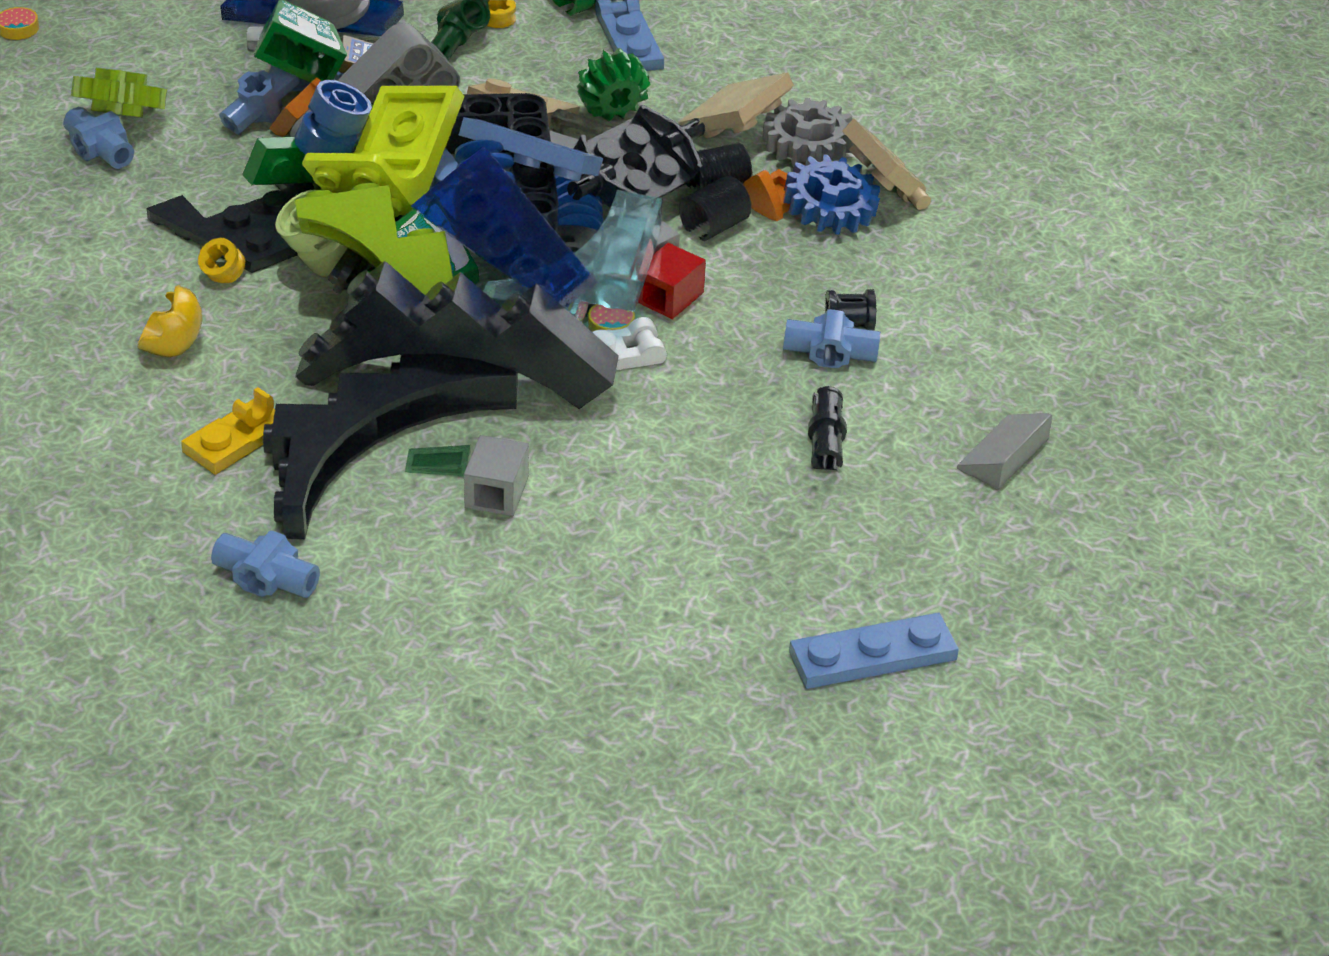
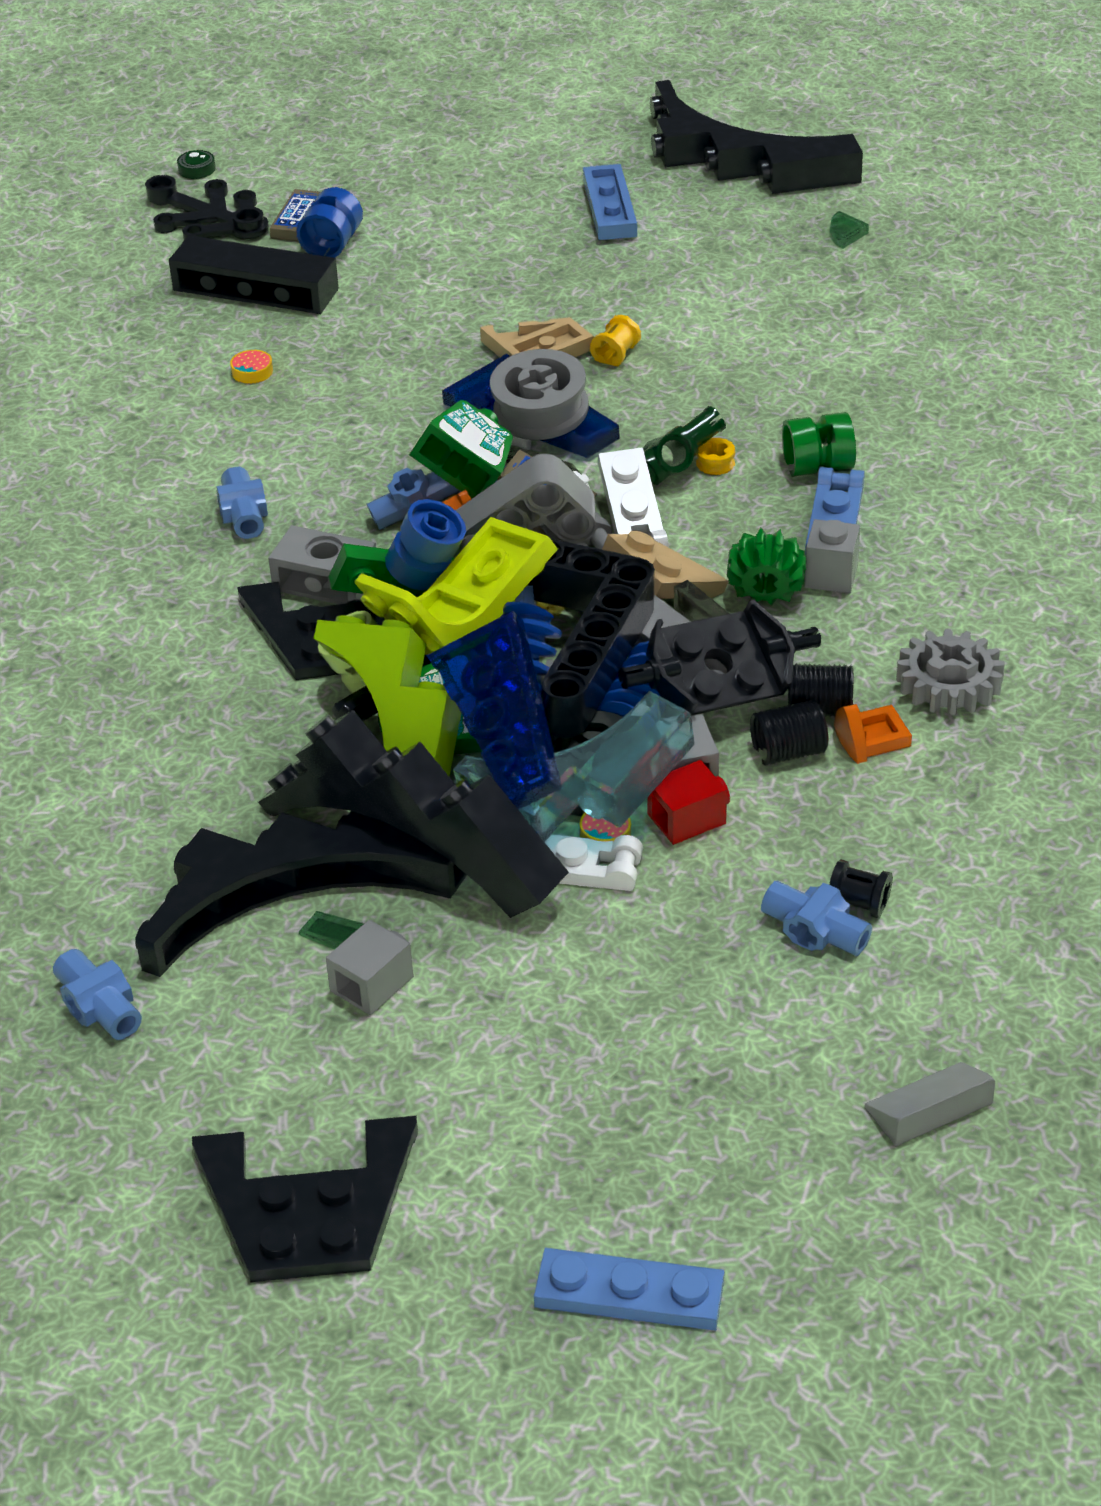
camera: 30 degrees right, 0 degrees up
(119, 92) = (281, 461): lime gear -> none
(173, 330) = (177, 718): yellow hair -> none
(212, 252) = (267, 661): yellow bush -> none
(213, 172) = (305, 561): none -> light grey brick
(232, 436) = (155, 848): yellow plate -> none
(458, 49) = (630, 493): none -> white plate
(532, 150) = (588, 623): medium blue plate -> none
(571, 685) = (309, 1219): none -> black wing
(663, 63) = (832, 555): none -> light grey brick
(740, 103) = (881, 622): tan tile -> none
(827, 428) = (747, 1018): black pin -> none
(831, 194) = (925, 749): blue gear -> none
(889, 168) = (1002, 731): tan plate -> none

